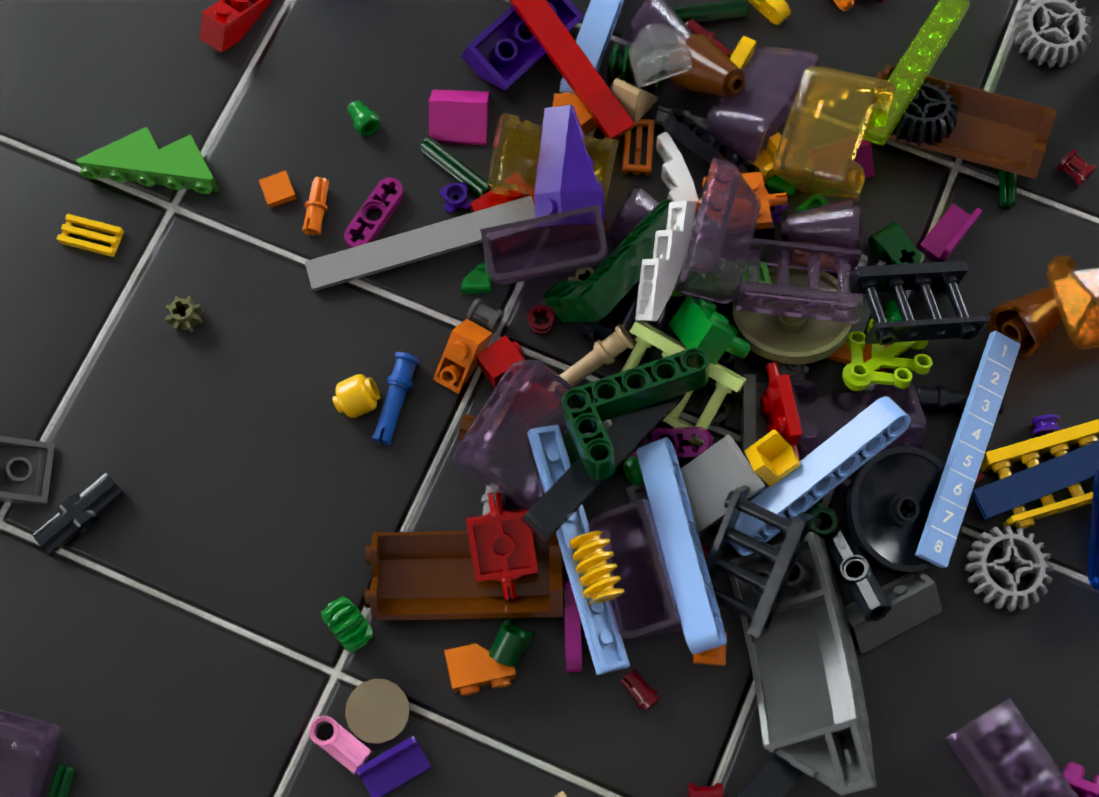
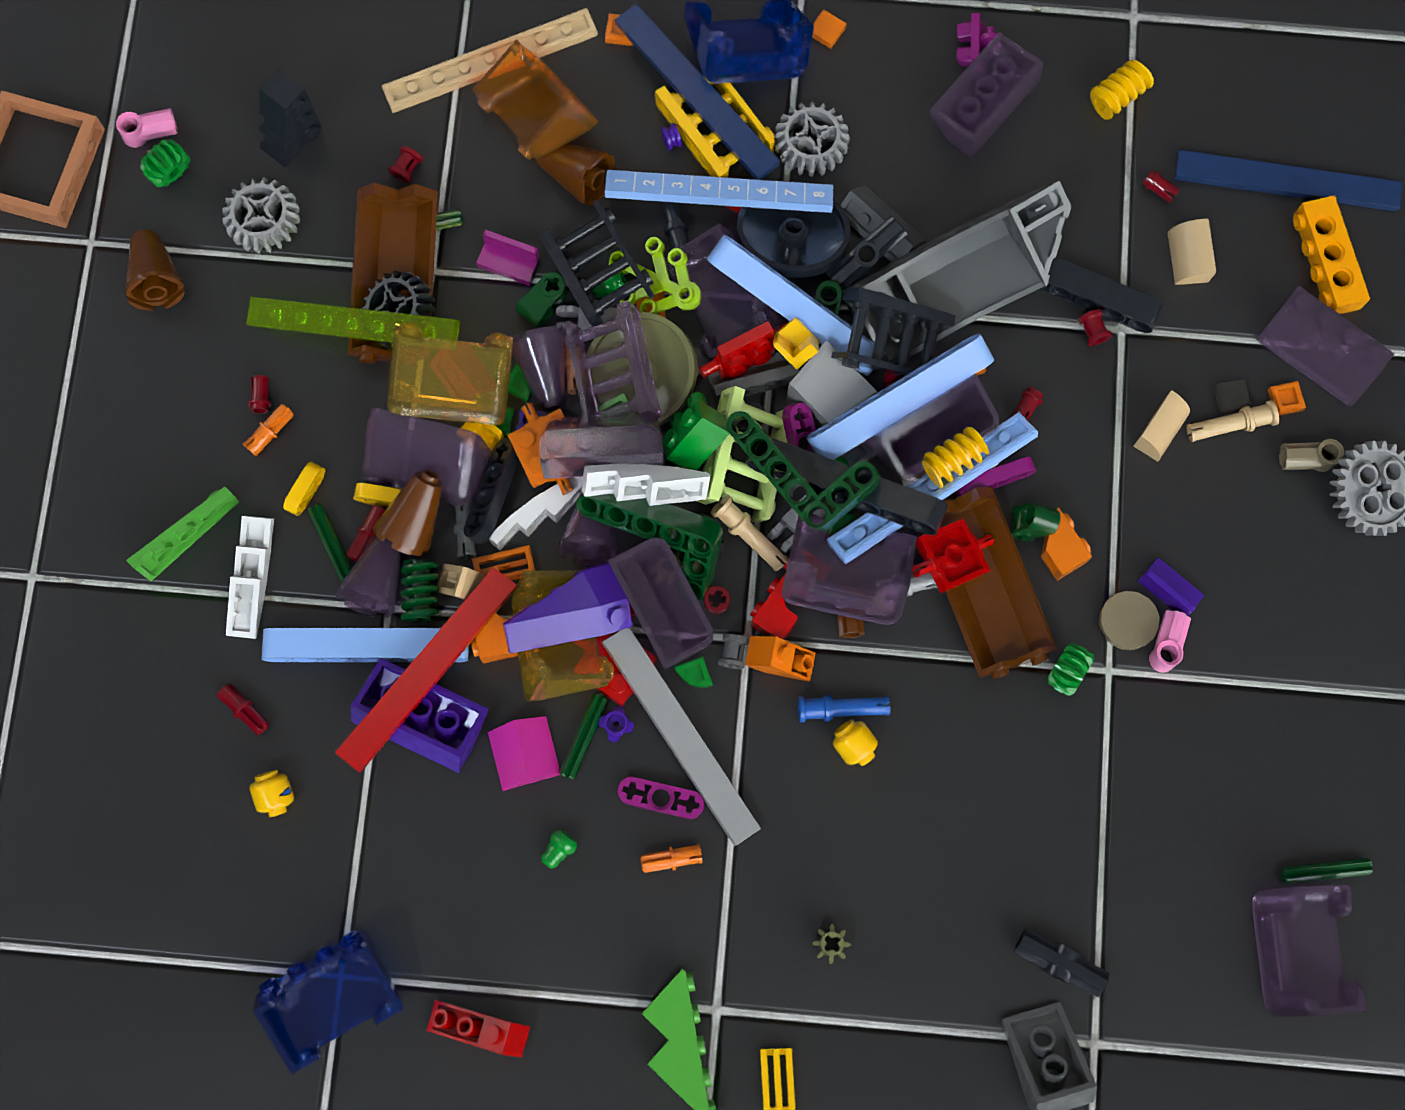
camera: 110 degrees left, 5 degrees up
(277, 189) = (664, 906): orange tile -> none
(658, 54) = (415, 562): clear slope -> none

